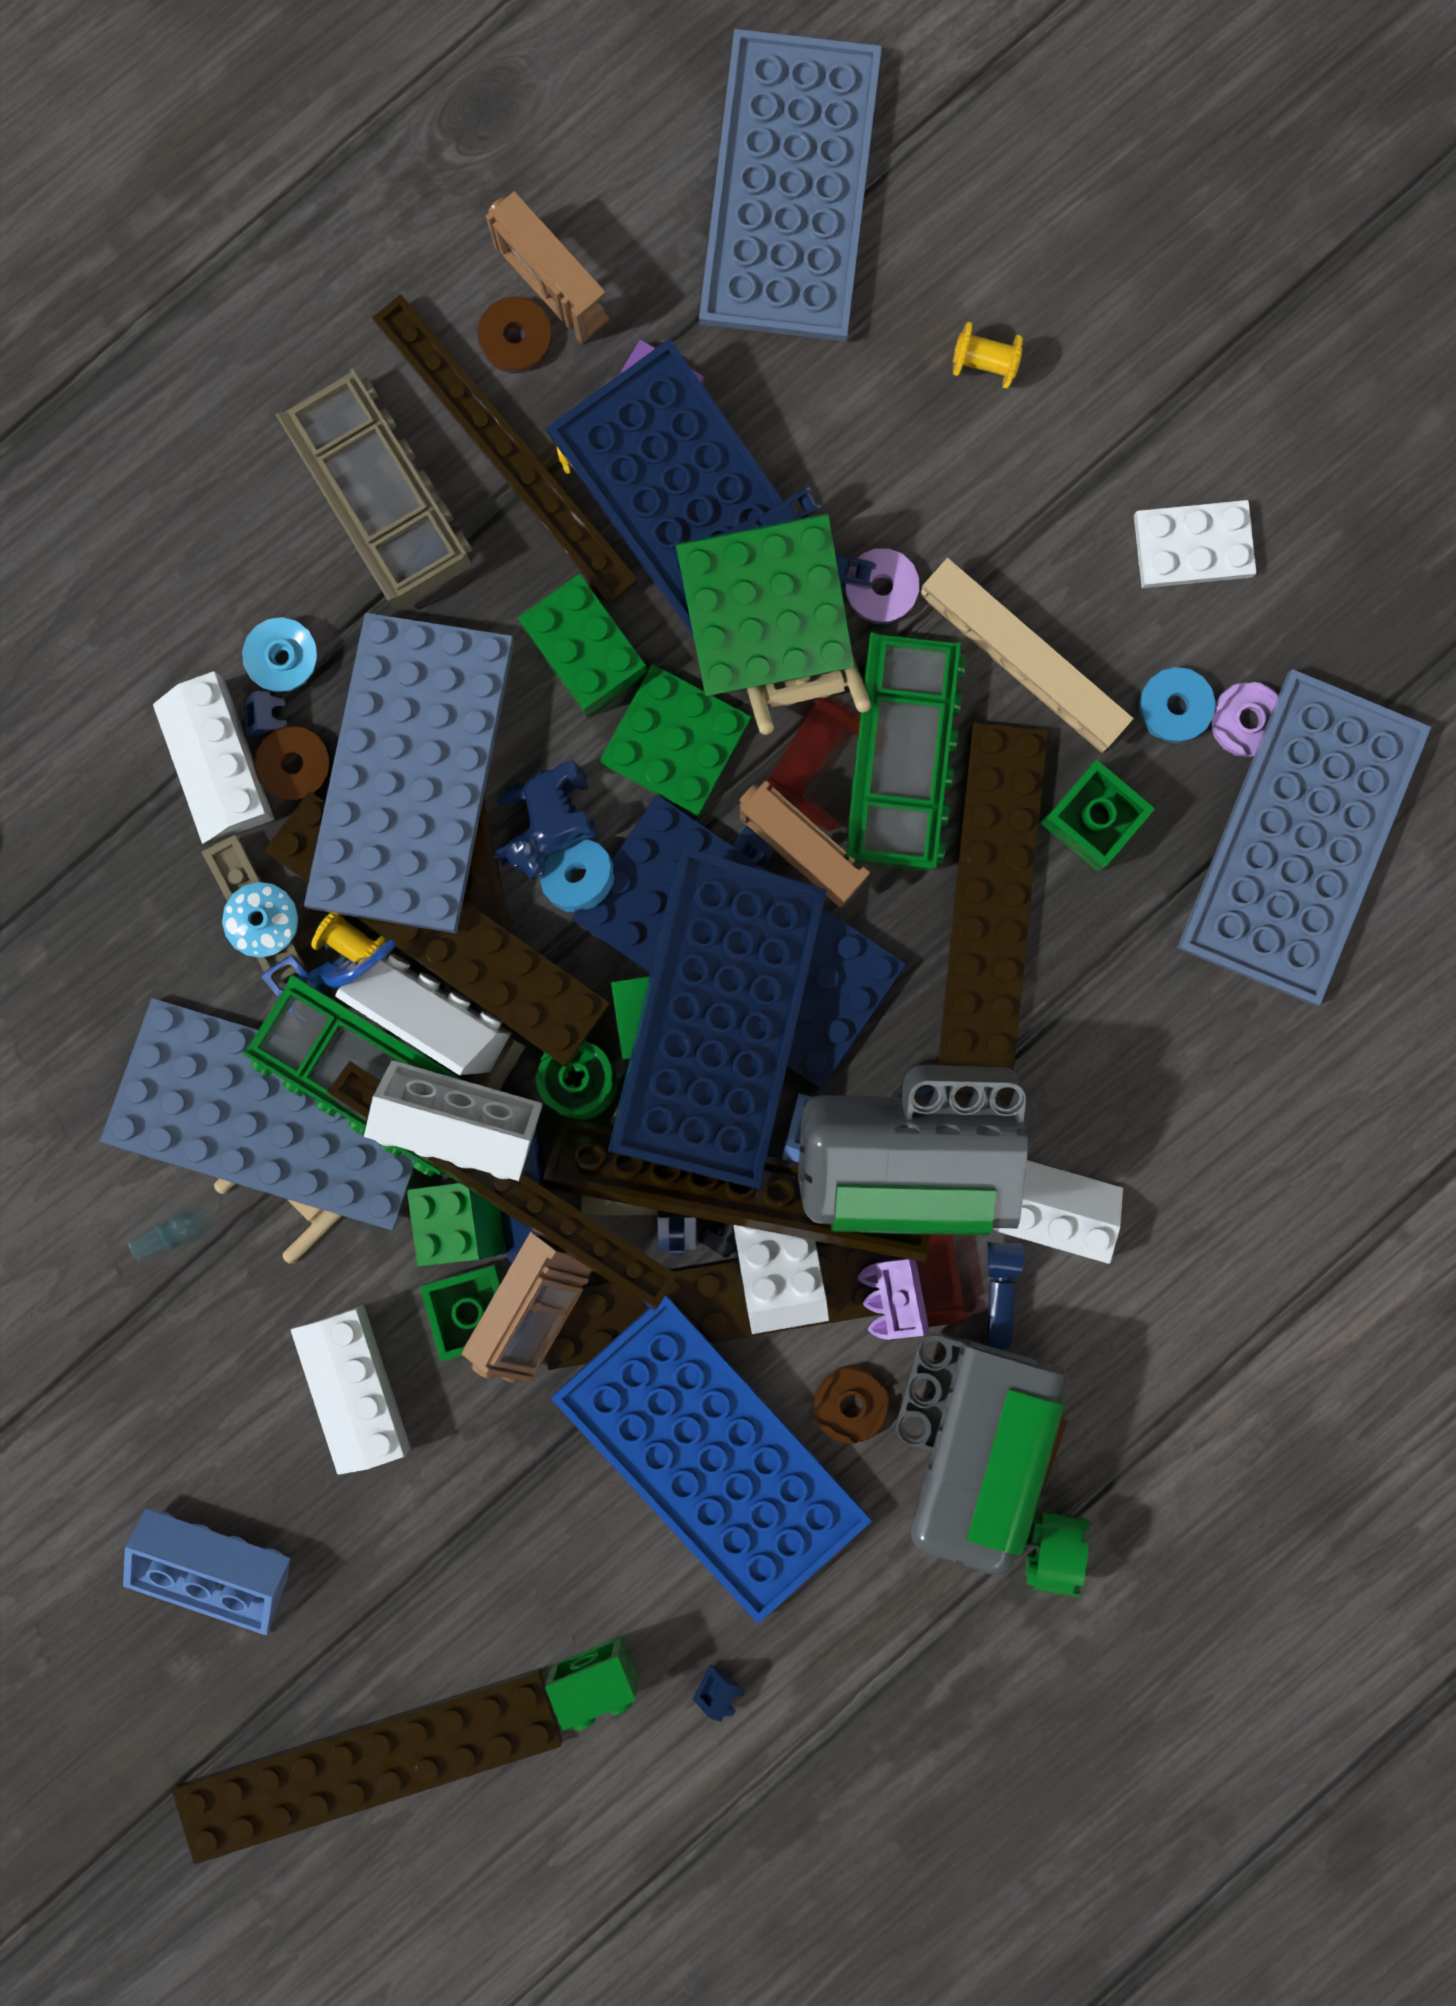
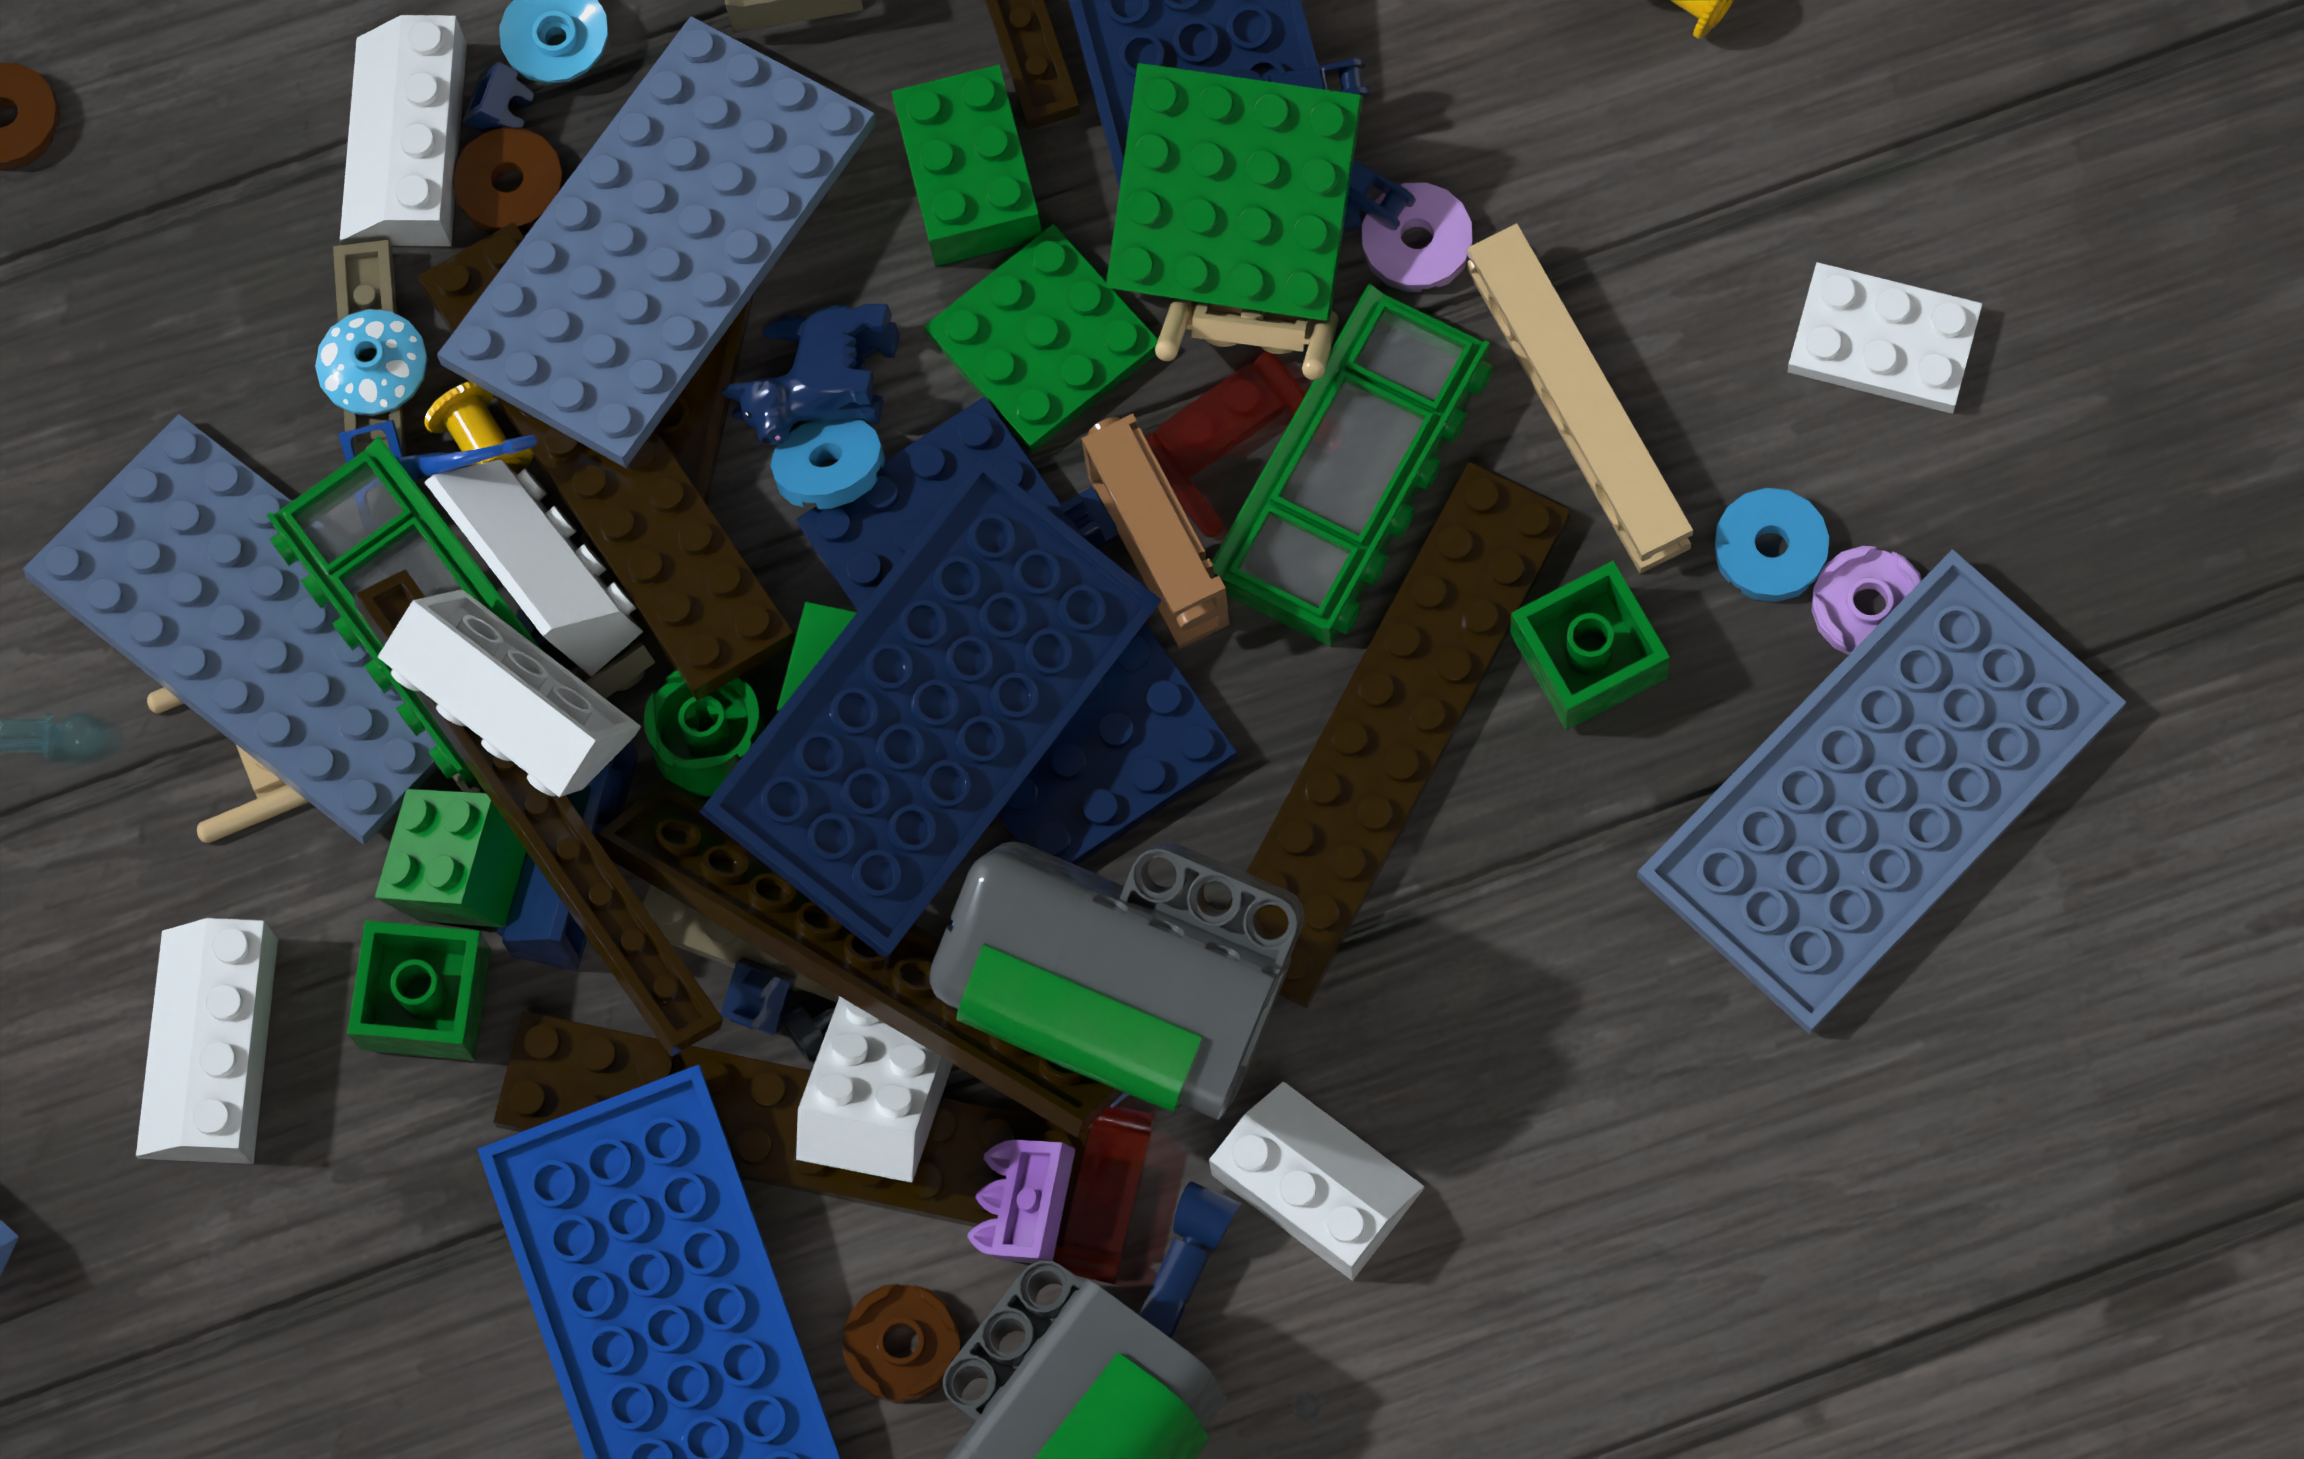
camera: 30 degrees right, 15 degrees down
(526, 1312) = (499, 1006): medium nougat door -> none

